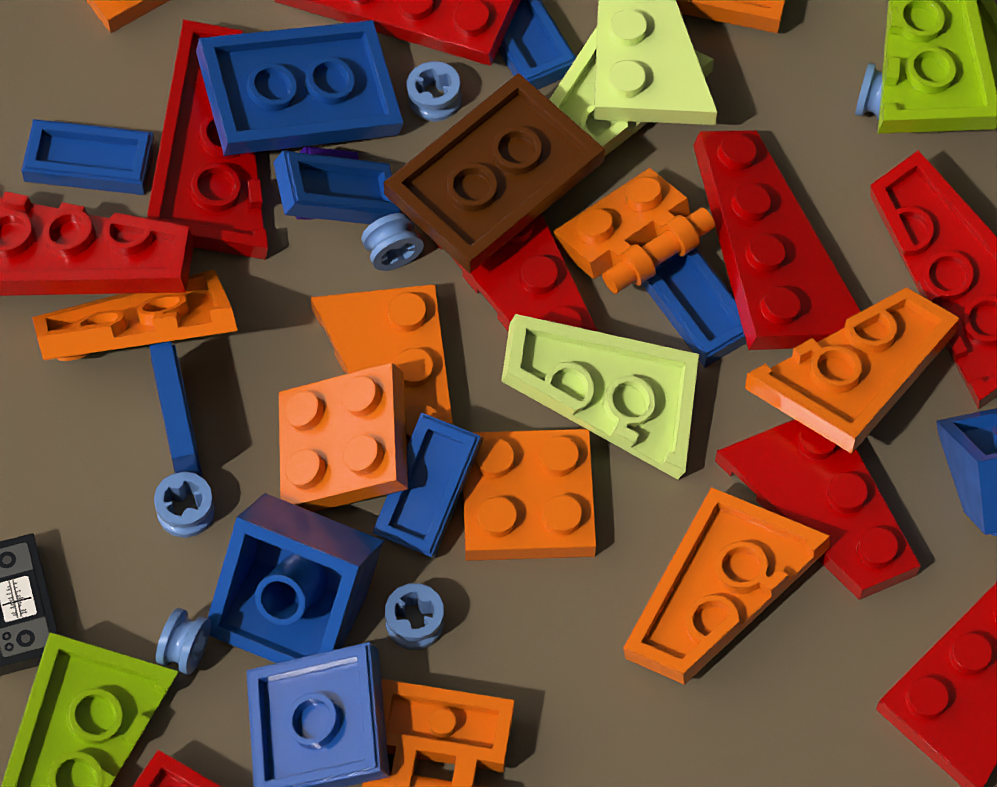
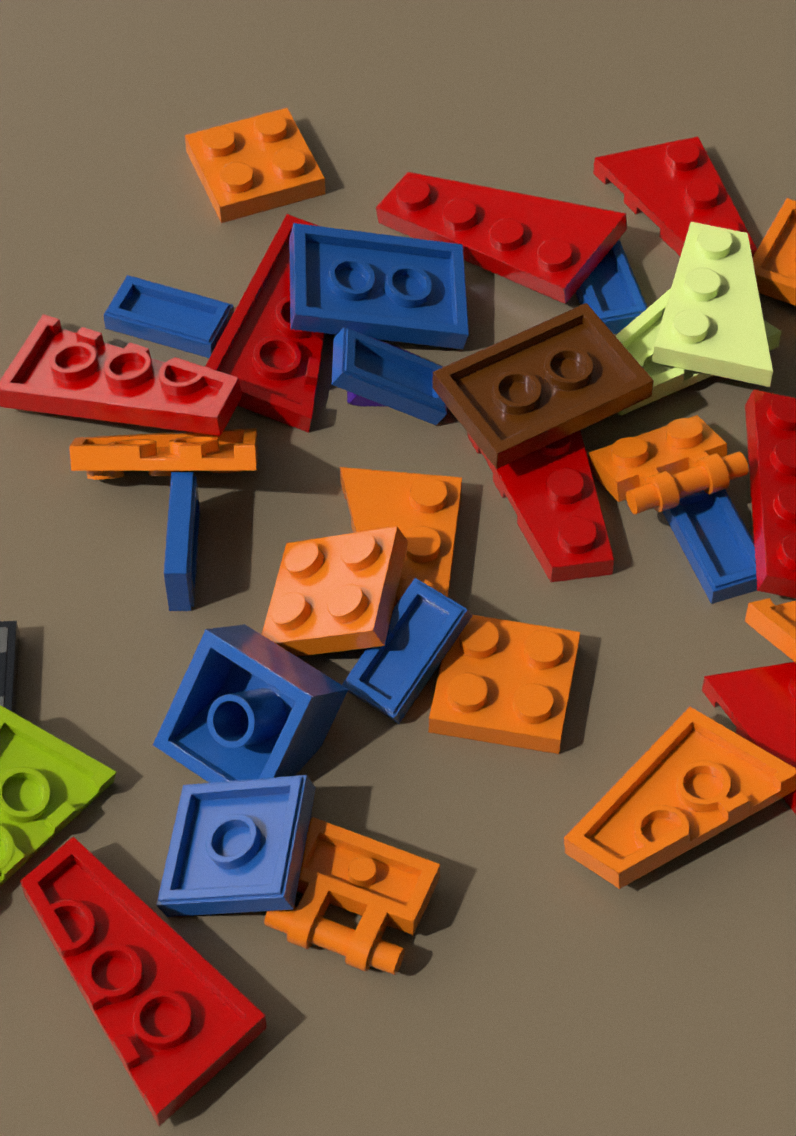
camera: 15 degrees right, 10 degrees down
(183, 641) = (128, 744): medium blue bush -> none
(192, 520) = (170, 641): medium blue bush -> none
(392, 241) = (431, 433): medium blue bush -> none
(423, 102) = (500, 303): medium blue bush -> none
(428, 602) = (344, 766): medium blue bush -> none
(608, 384) = (609, 594): yellowish green wing -> none

